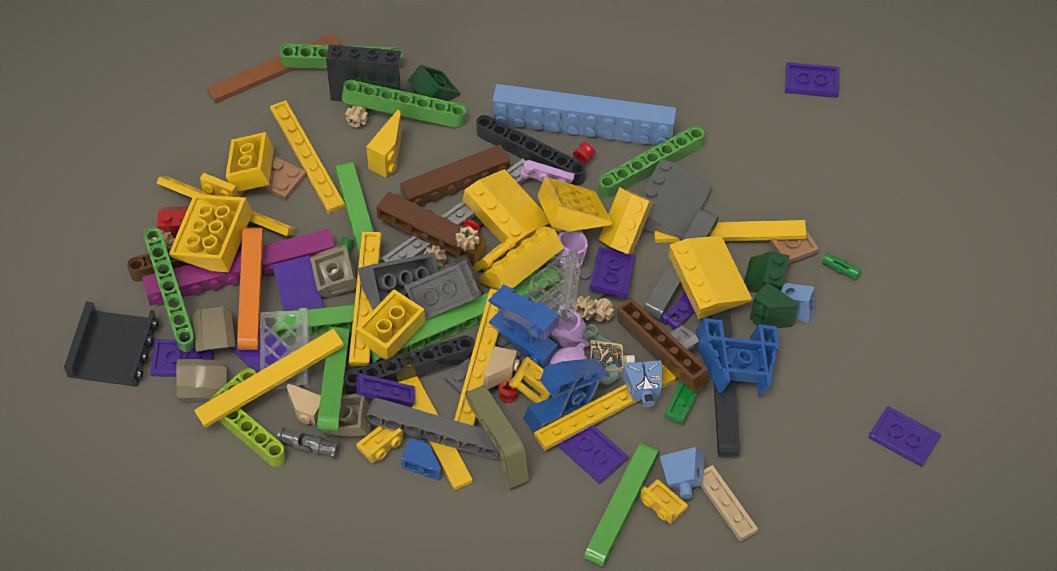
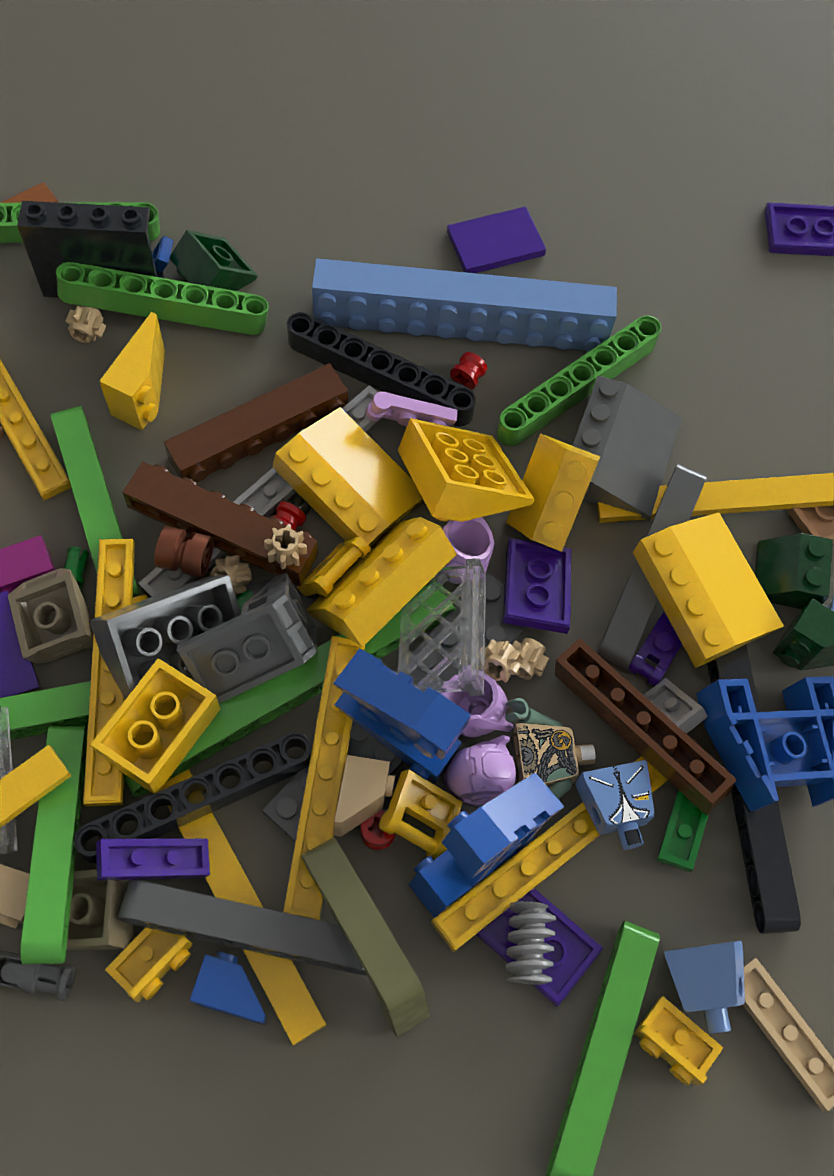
camera: 10 degrees left, 10 degrees up
(404, 77) = (162, 252): none -> blue tile
(408, 240) = (181, 551): none -> copper wheel
(586, 445) = (530, 943): none -> light grey piece
(610, 78) = (496, 240): none -> dark purple tile

